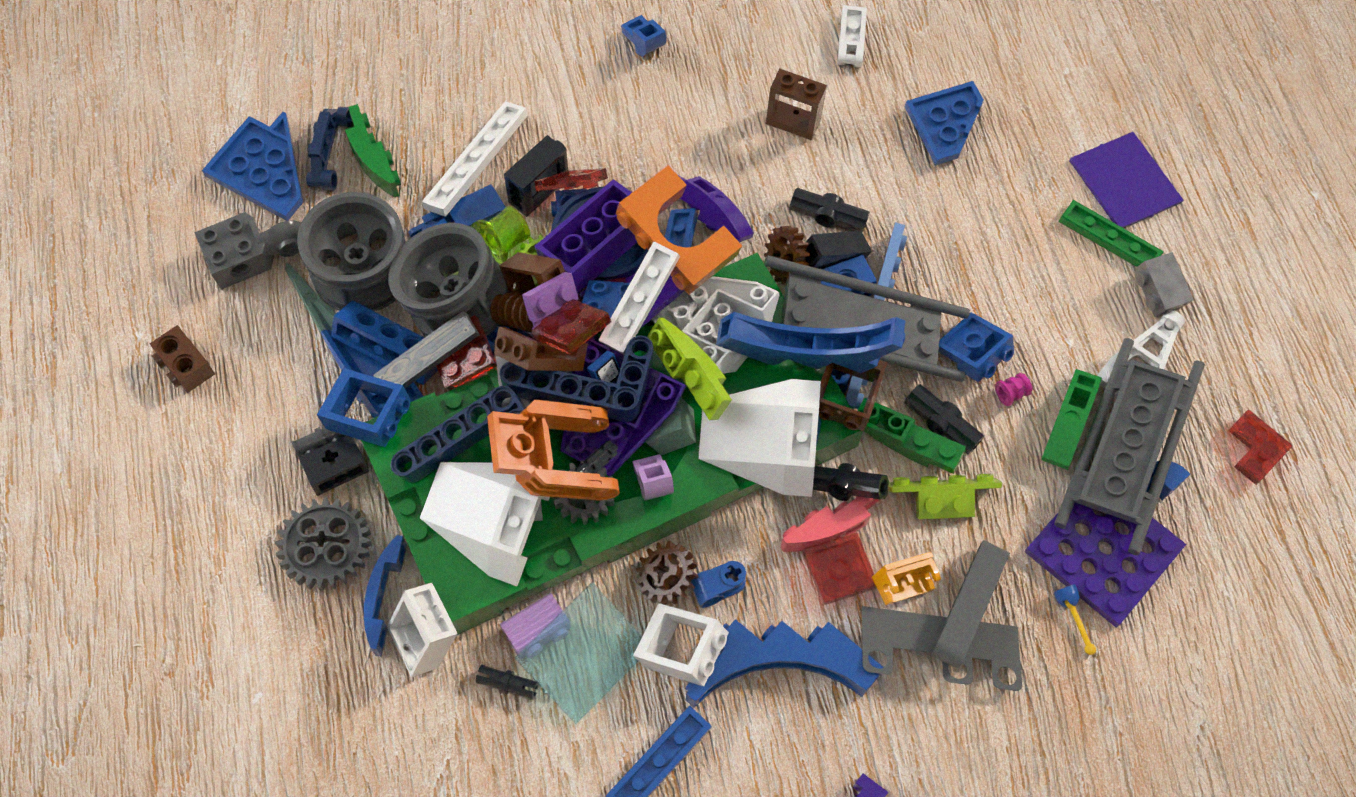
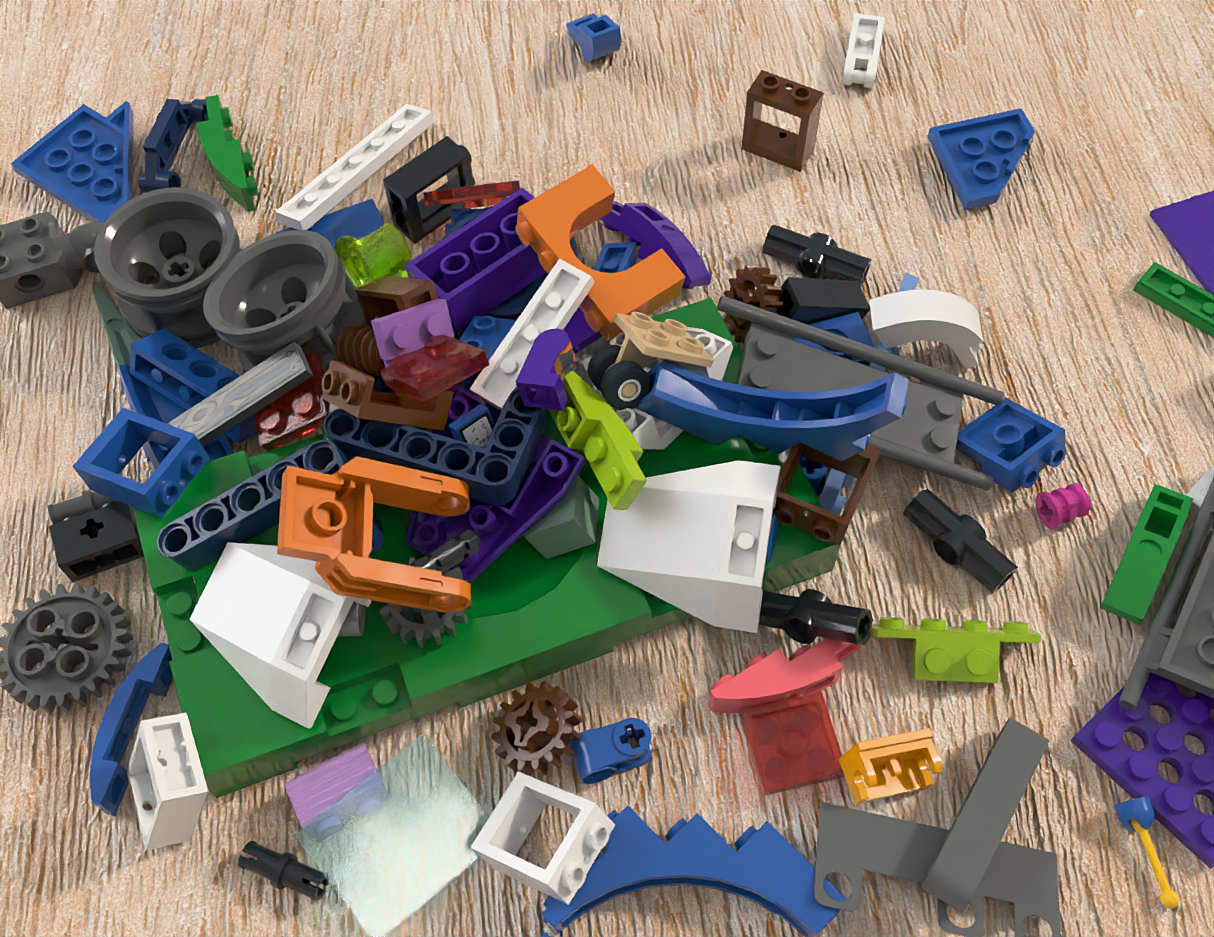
camera: 10 degrees right, 5 degrees down
(651, 330) = (545, 371): none -> dark purple leg
(653, 477) = (527, 587): lavender brick -> none
(702, 317) = (620, 369): none -> tan plate
(912, 441) = (910, 567): green slope -> none
(913, 258) = (928, 316): none -> white arch

